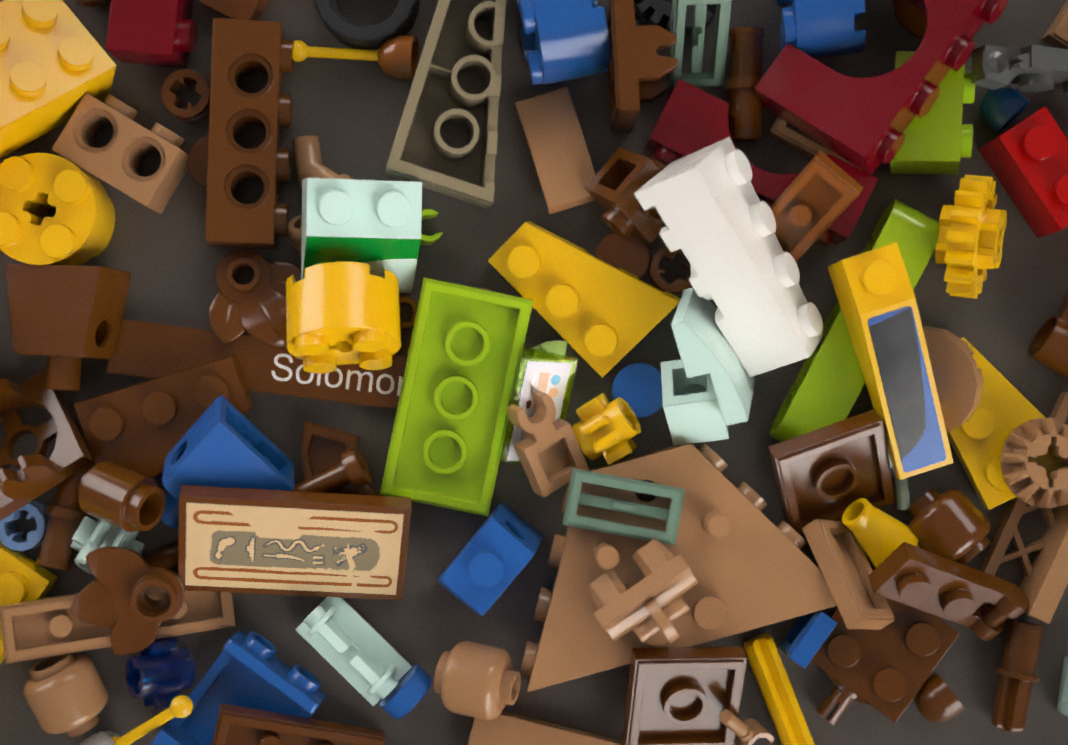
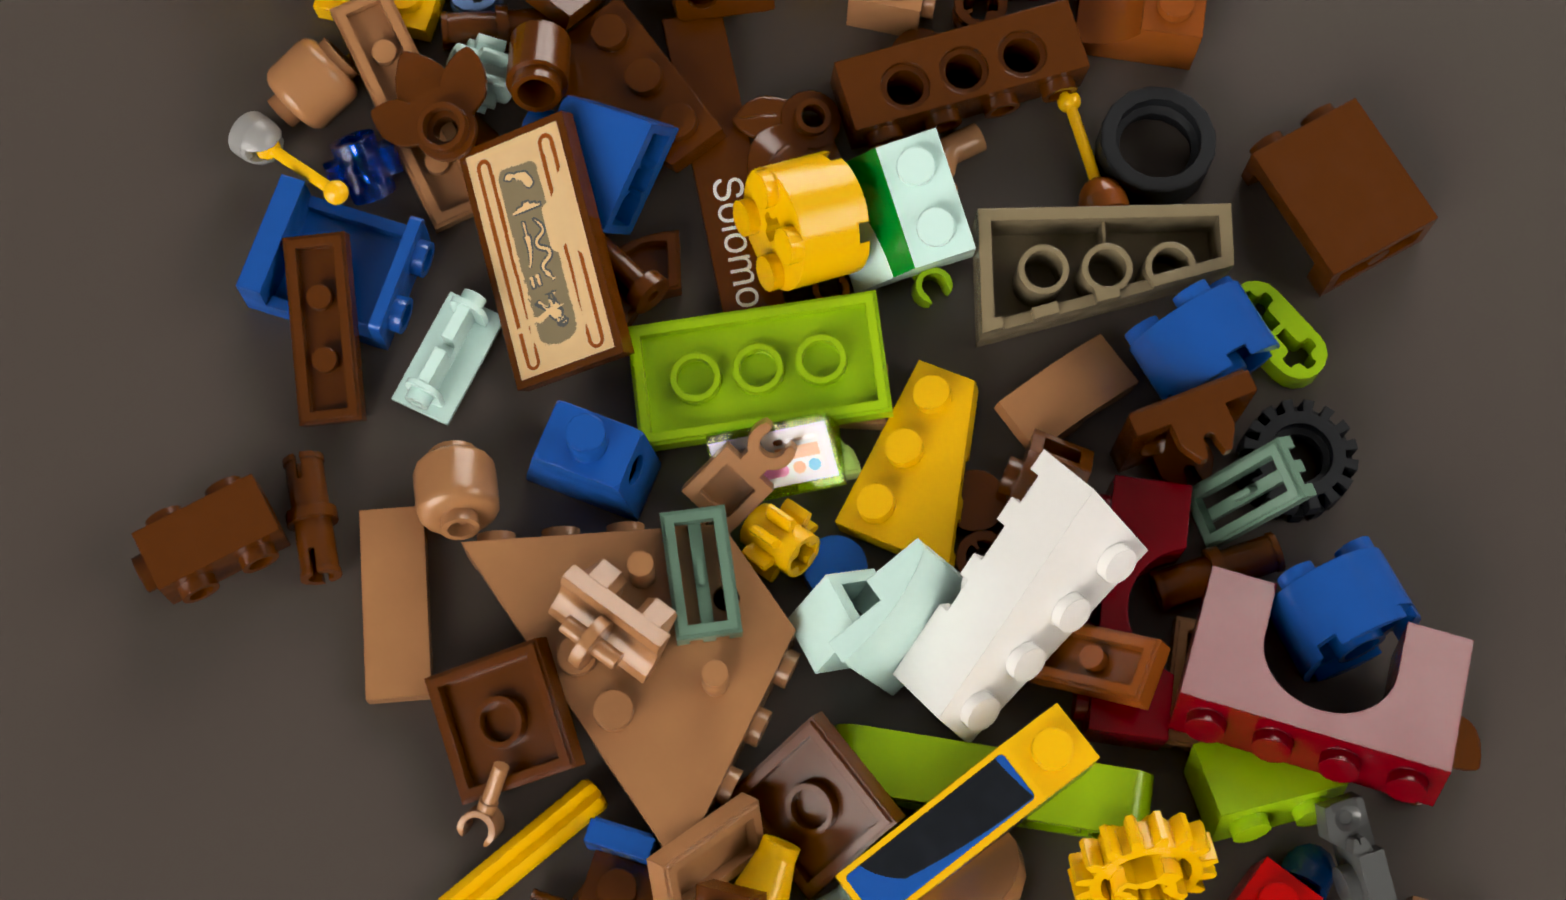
camera: 70 degrees right, 15 degrees down
(407, 693) = (418, 423): blue tile -> none

